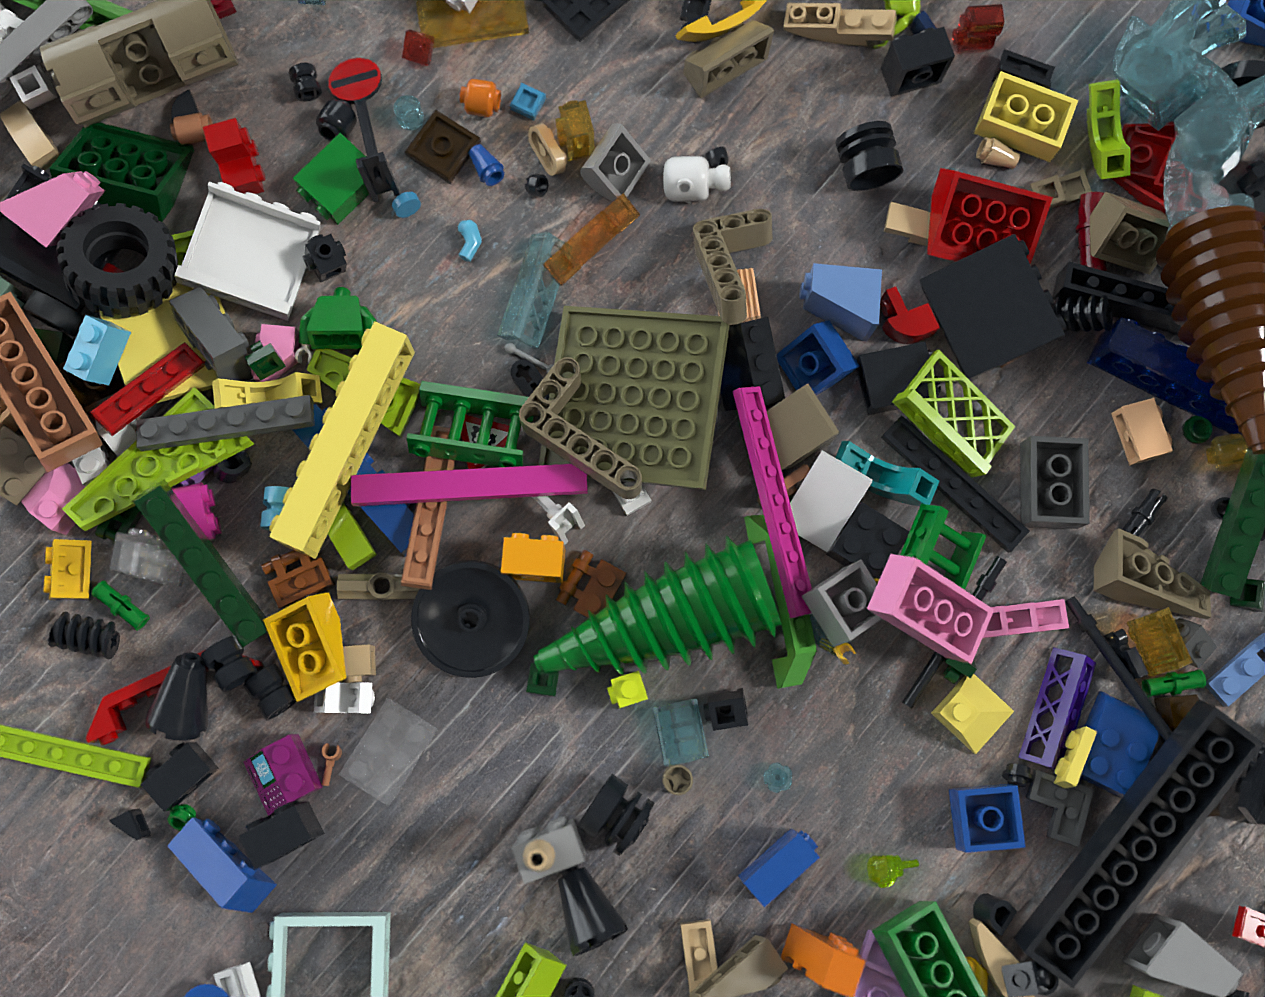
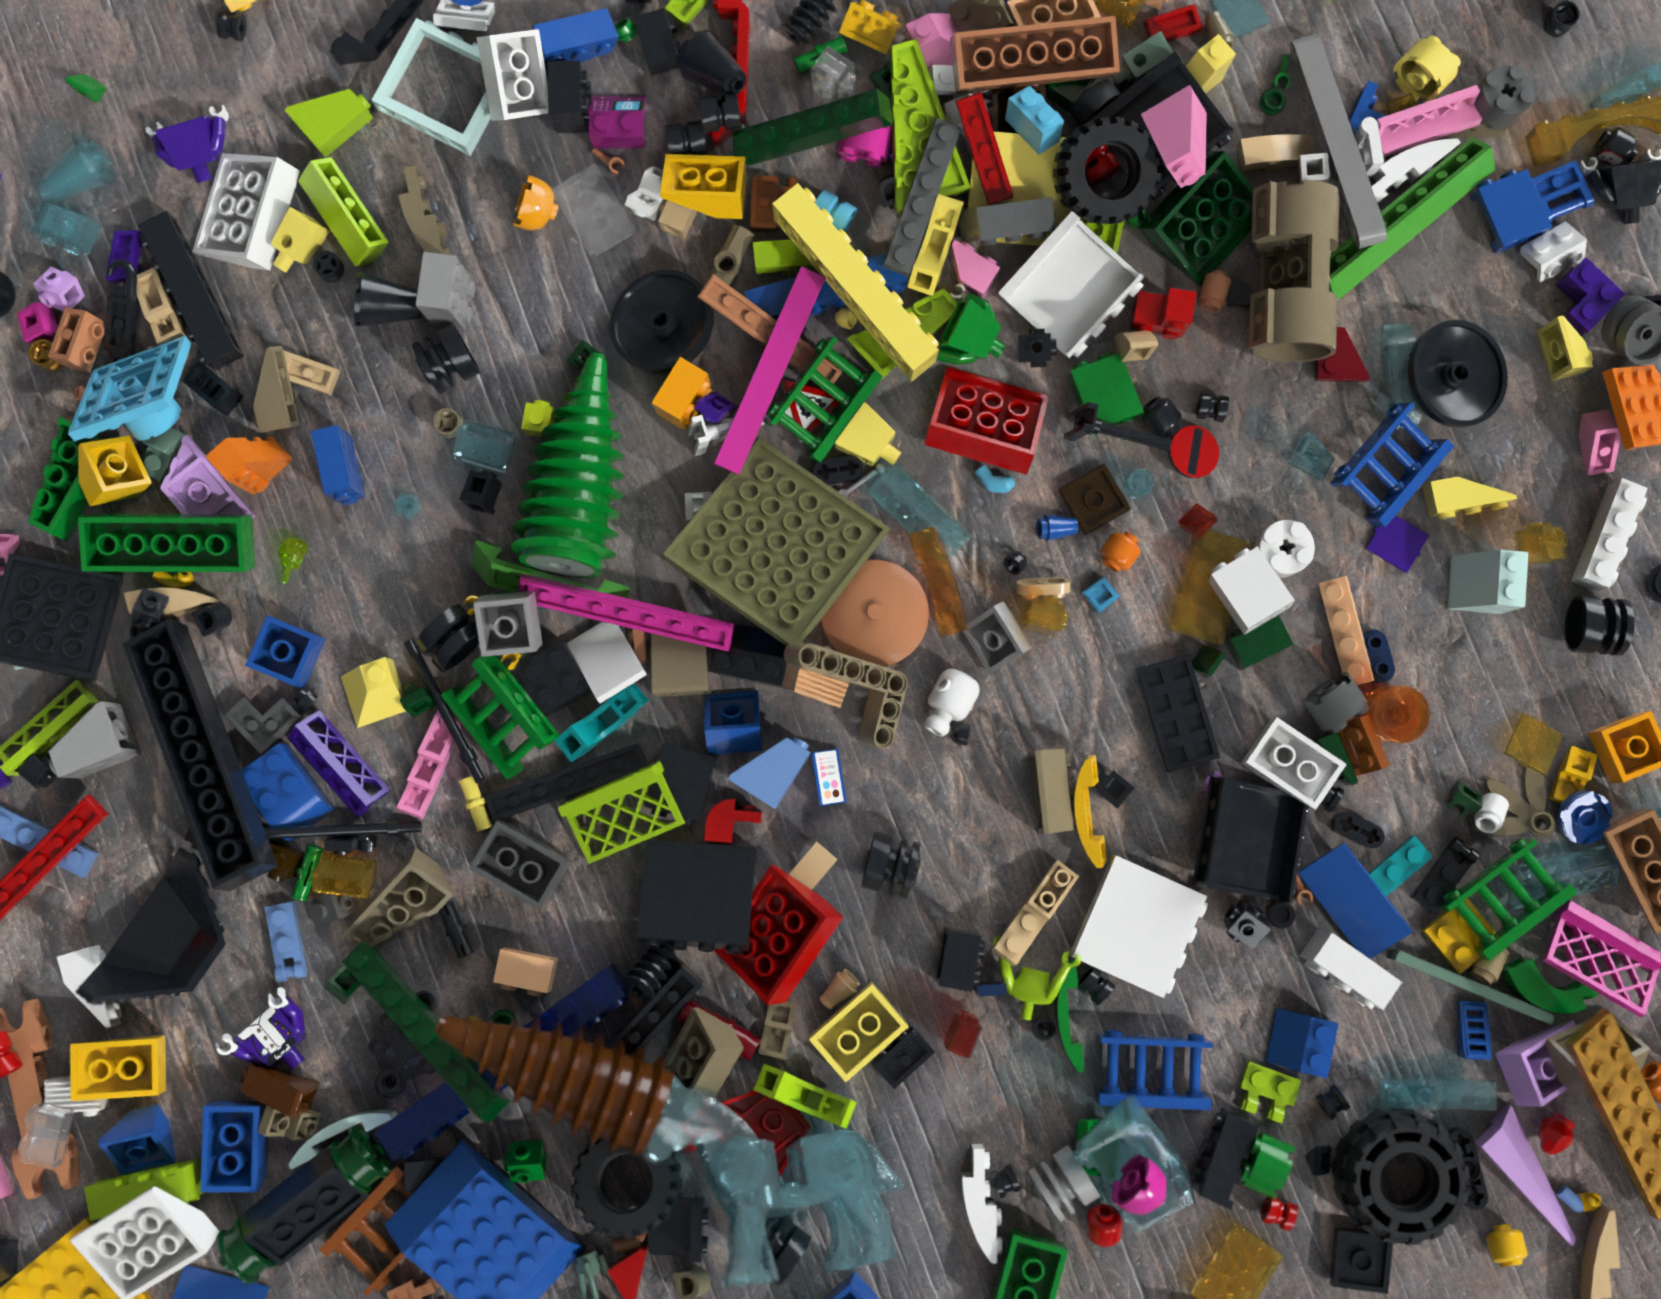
camera: 125 degrees right, 5 degrees up
(264, 360) = (962, 253): dark green tile -> none
(278, 165) = (1135, 345): none -> tan slope
(284, 901) = (514, 74): none -> white brick
(380, 449) = (845, 318): none -> light yellow hinge
(406, 204) = (1053, 440): dark azure tile -> none
(412, 811) = (534, 205): none -> light orange cylinder
(416, 270) = (987, 420): none -> red slope
(487, 366) = (868, 438): none -> light yellow torso
(491, 911) = (419, 216): none -> dark tan slope
(532, 520) = (715, 407): none -> dark purple plate
(545, 849) = (435, 270): tan cone -> none
(573, 437) = (764, 470): dark tan beam -> none
(603, 581) = (634, 441): dark orange plate -> none
(649, 275) = (878, 615): none -> nougat dish
(821, 251) = (828, 777): none -> slope
(887, 655) = (449, 638): none -> black wheel
(930, 608) = (464, 684): bright pink brick -> none
(1021, 557) = (475, 804): none -> light yellow pin
(1078, 748) = (286, 740): light yellow plate -> none

